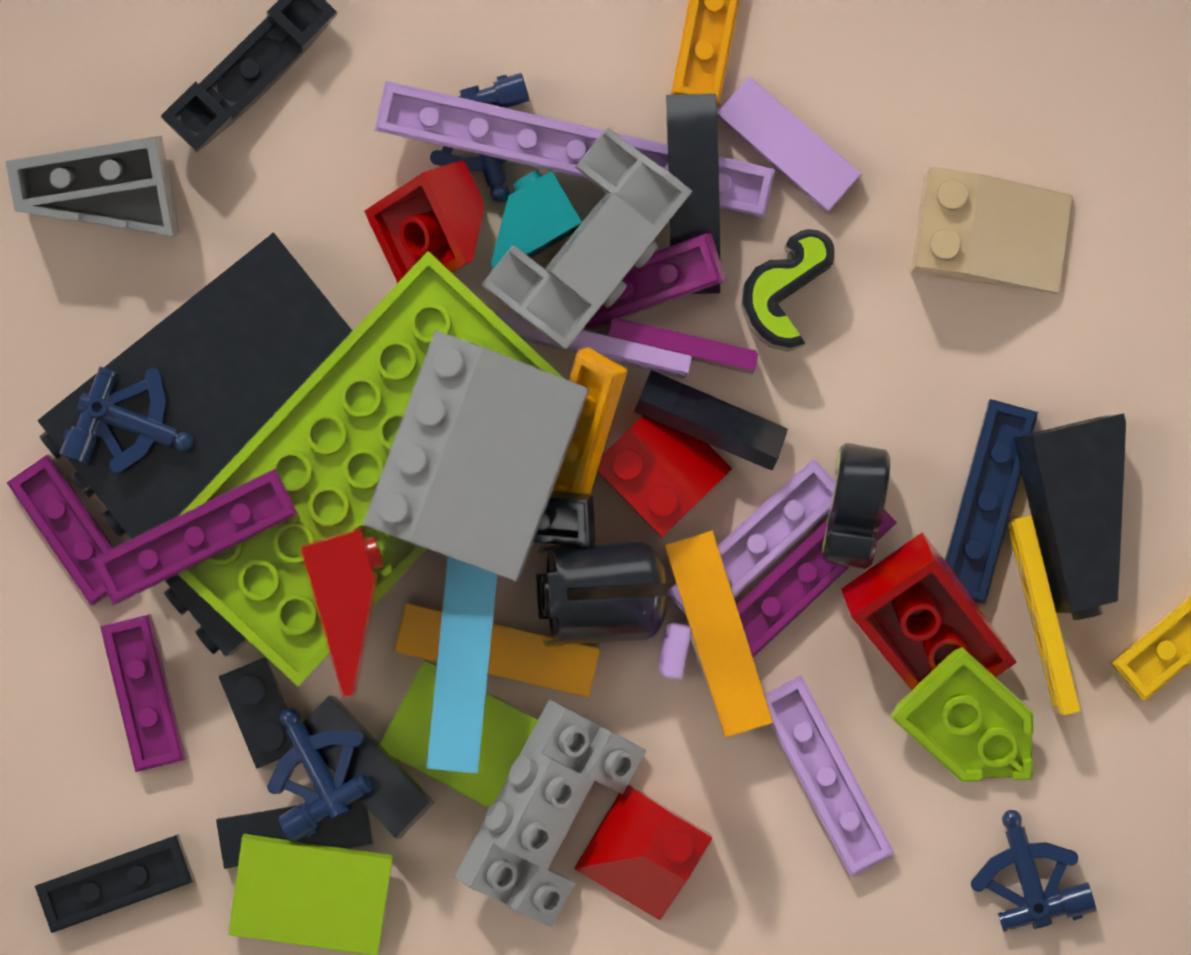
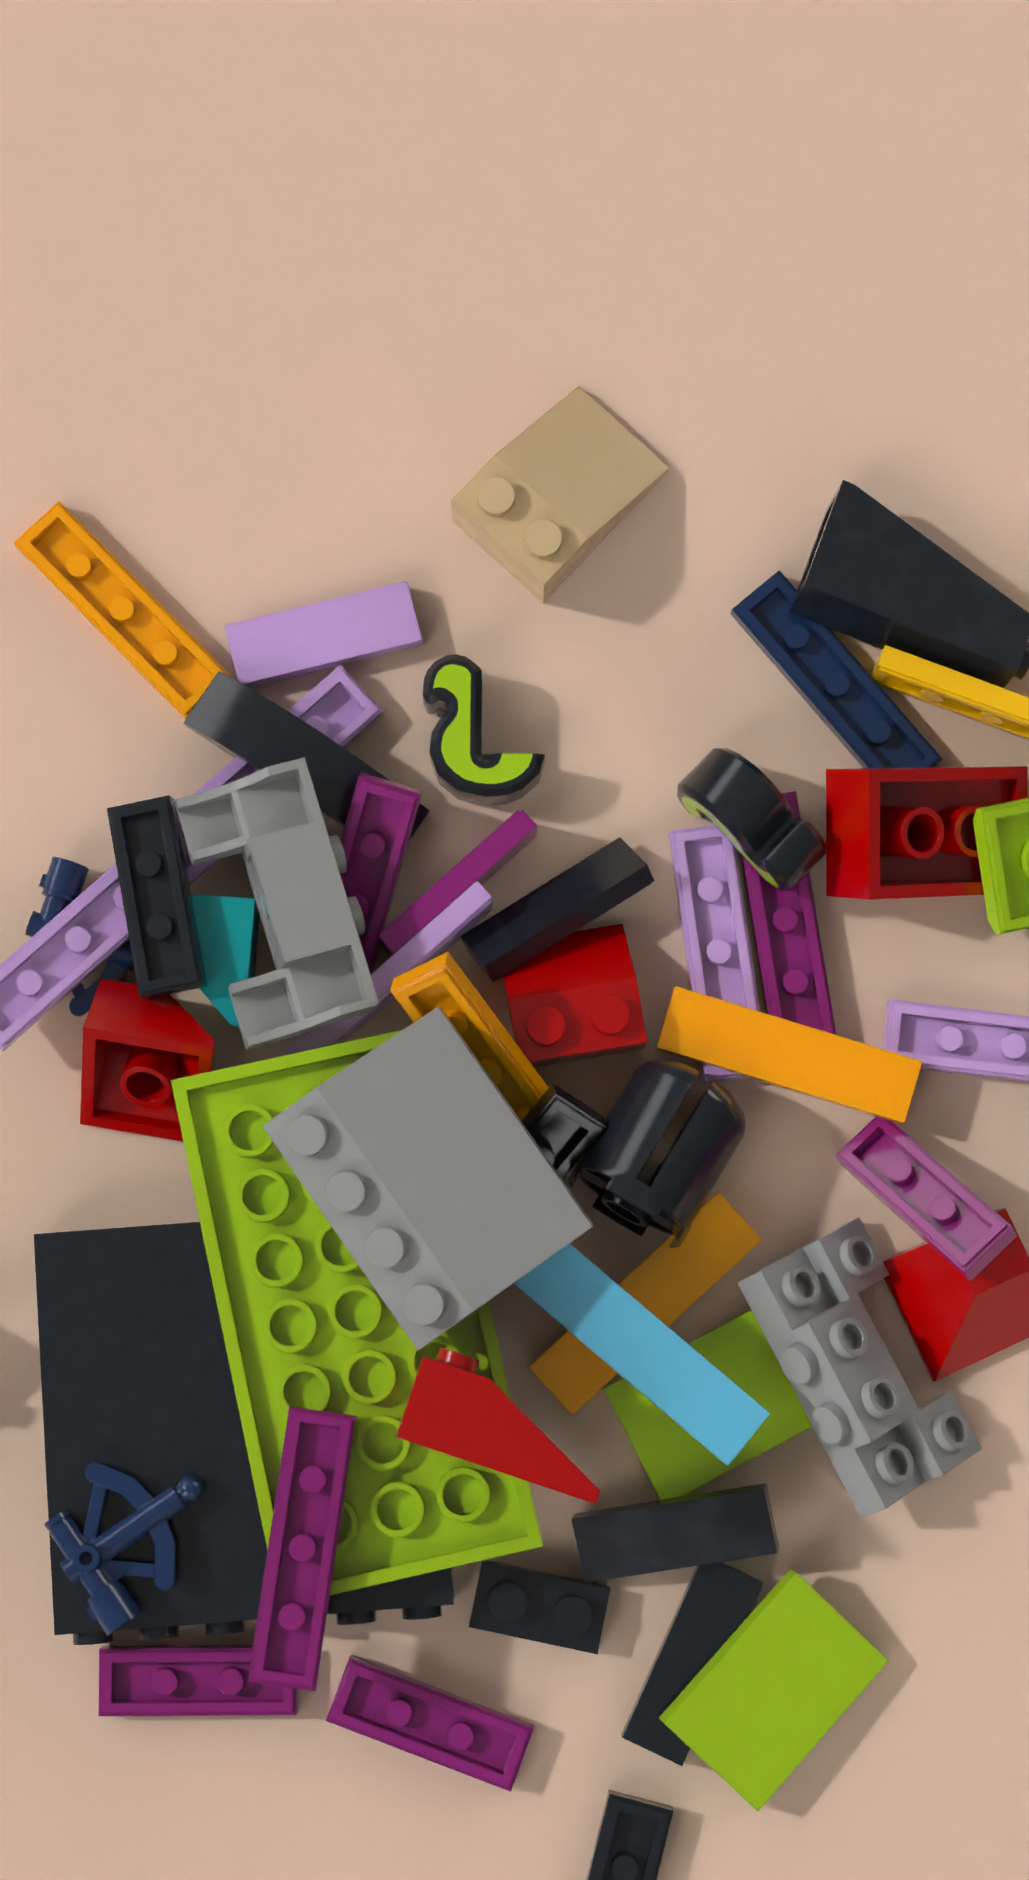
camera: 60 degrees left, 5 degrees down
(330, 795) = (683, 1593): dark blue piece -> none
(539, 159) = (156, 897): none -> black tile
(673, 650) = (782, 1108): lavender tile -> none
(686, 782) = (926, 1196): none -> magenta tile

